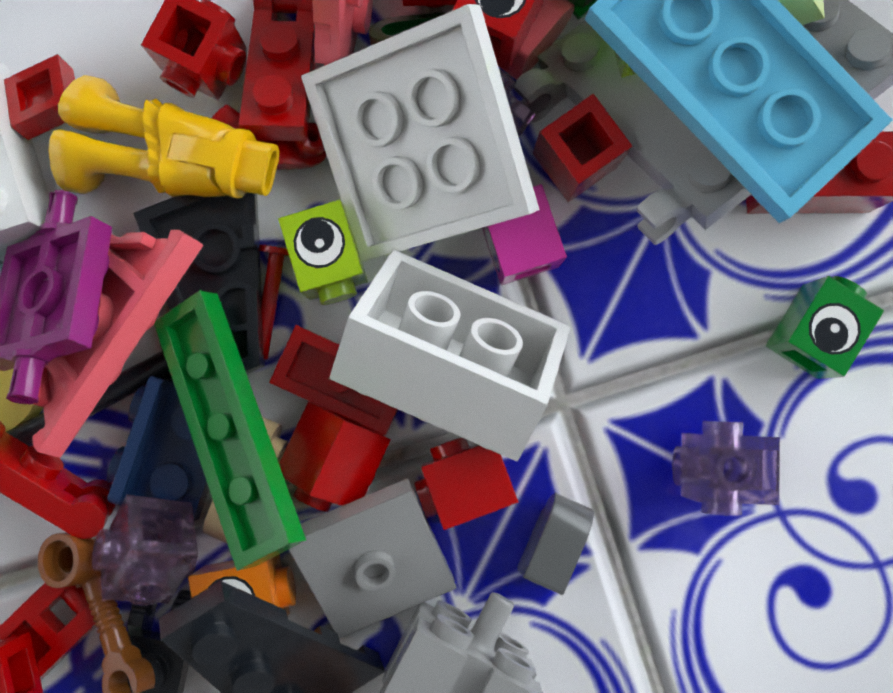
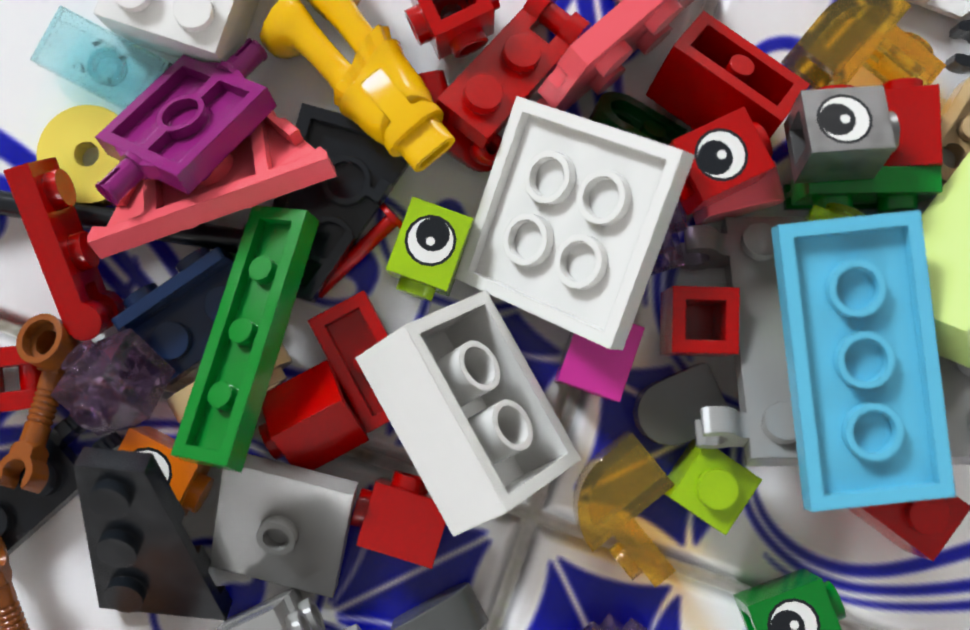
camera: 40 degrees right, 0 degrees up
(610, 233) = (671, 405): none -> dark grey piece
(615, 343) = (611, 494): none -> clear yellow brick
(686, 271) = (711, 486): none -> lime brick

